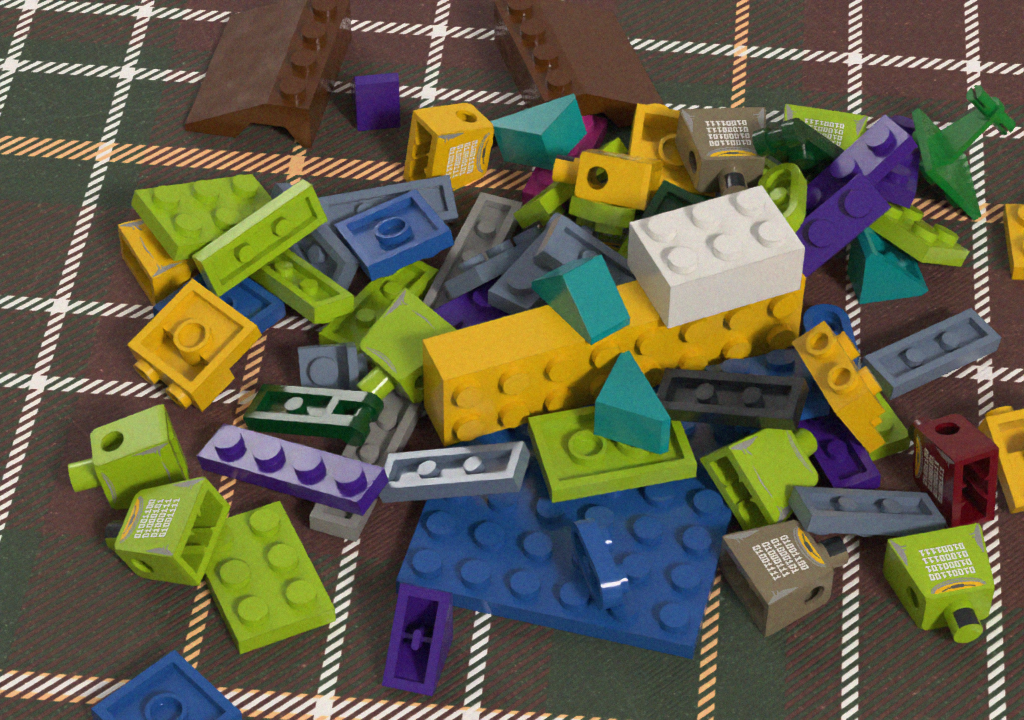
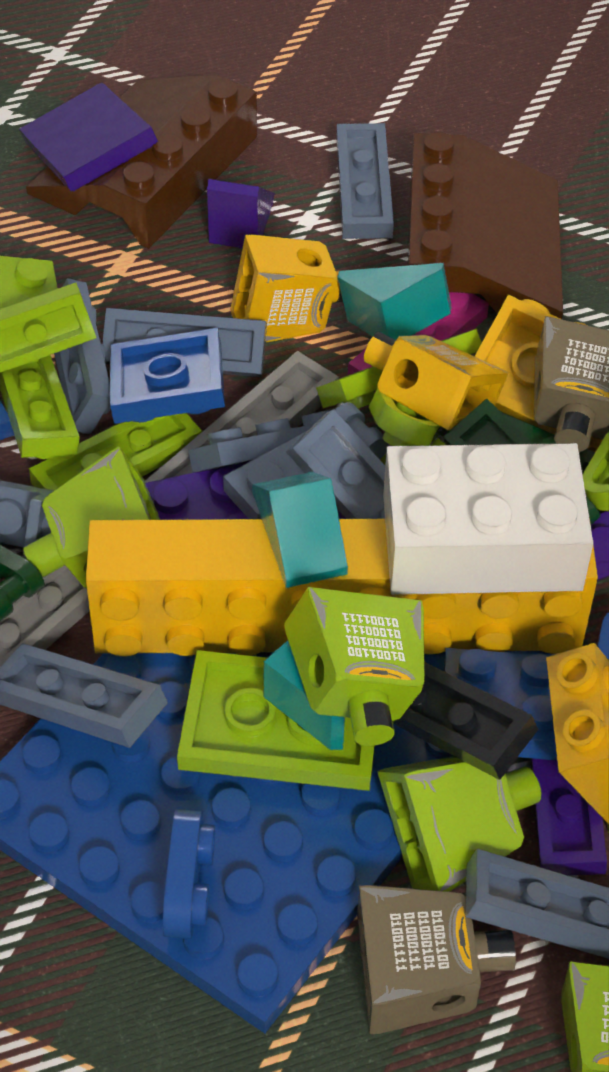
camera: 20 degrees right, 5 degrees up
(225, 69) = (88, 136): none -> dark purple tile
(462, 50) = (364, 181): none -> sand blue plate
(666, 374) = (359, 657): none -> lime torso

